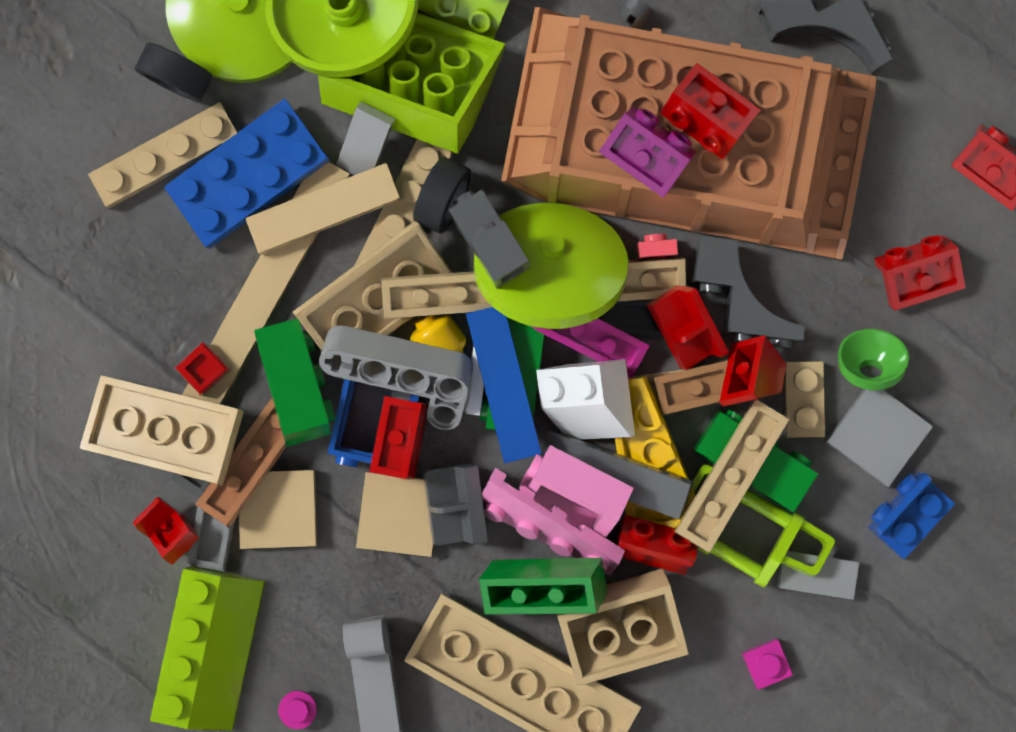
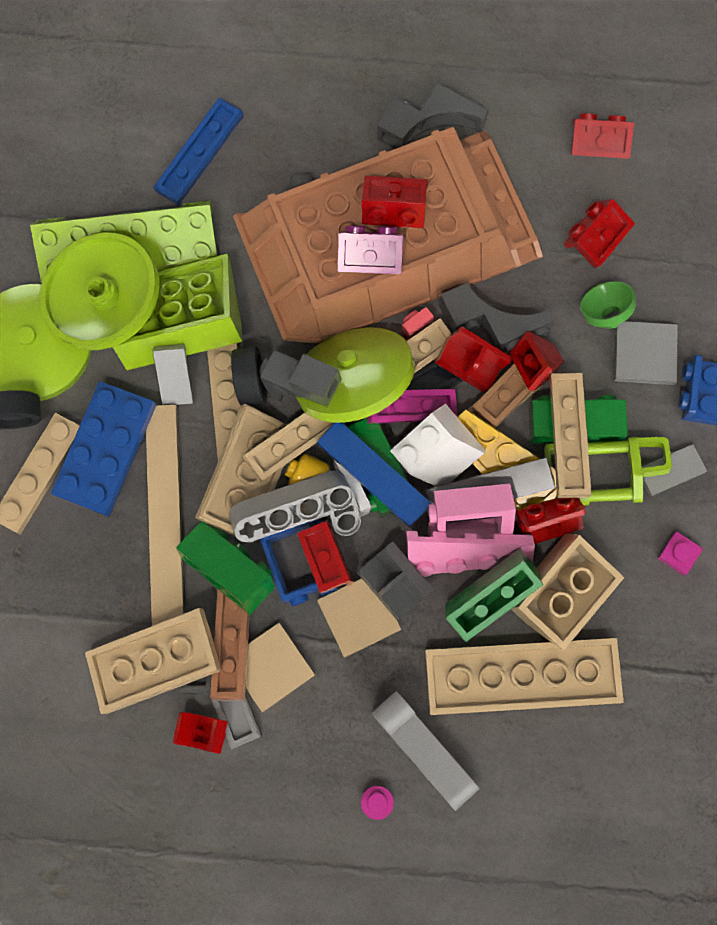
camera: 30 degrees left, 10 degrees down
(202, 368) = (155, 600): red tile -> none
(207, 650) = (284, 801): lime slope -> none
(323, 209) = (172, 437): tan tile -> none
(804, 399) = (582, 359): tan plate -> none

